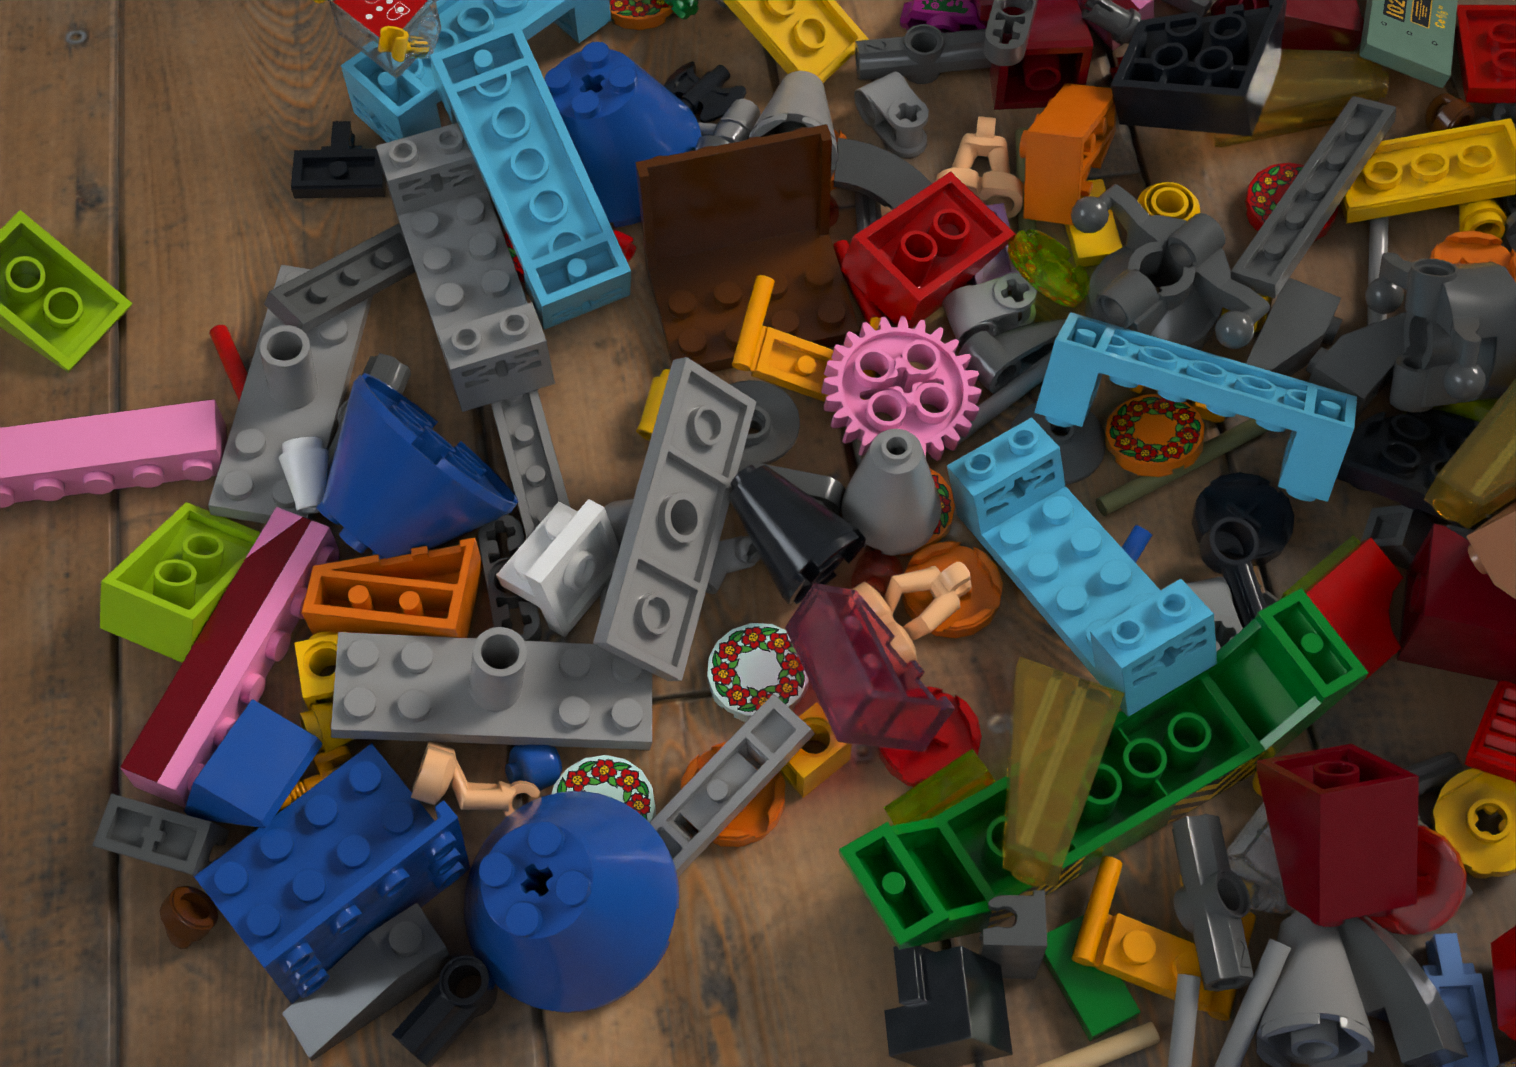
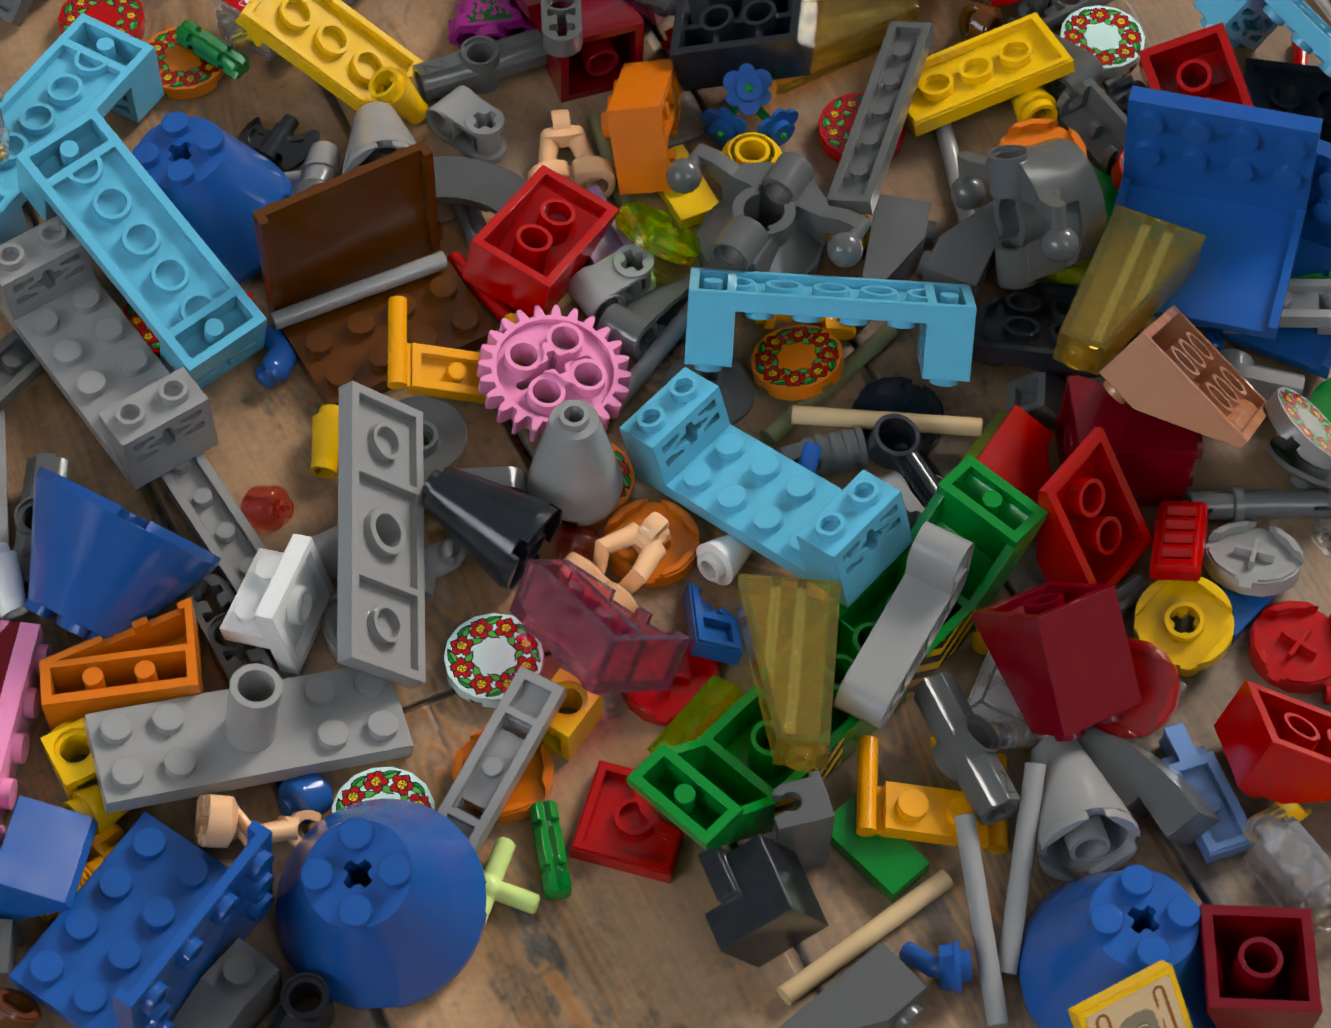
camera: 20 degrees left, 5 degrees down
(585, 458) = (267, 507): none -> clear red piece
(640, 311) = (278, 361): none -> blue arm
(695, 920) = (501, 891): none -> yellowish green piece
(735, 259) = (358, 290): none -> light grey bar
(755, 889) = (550, 850): none -> green axle
(826, 891) = (624, 829): none -> red tile
(831, 65) = (396, 89): none -> yellow cone
(983, 698) = (712, 632): none -> blue tile
(1017, 625) = (722, 558): none -> white cone
(1170, 540) = (840, 451): none -> dark grey hinge
(1179, 142) = (745, 93): none -> blue plant
(1182, 758) = (907, 625): none -> light grey beam
(1210, 514) = (867, 419): none -> tan bar
(1415, 688) = (1091, 518): none -> red slope

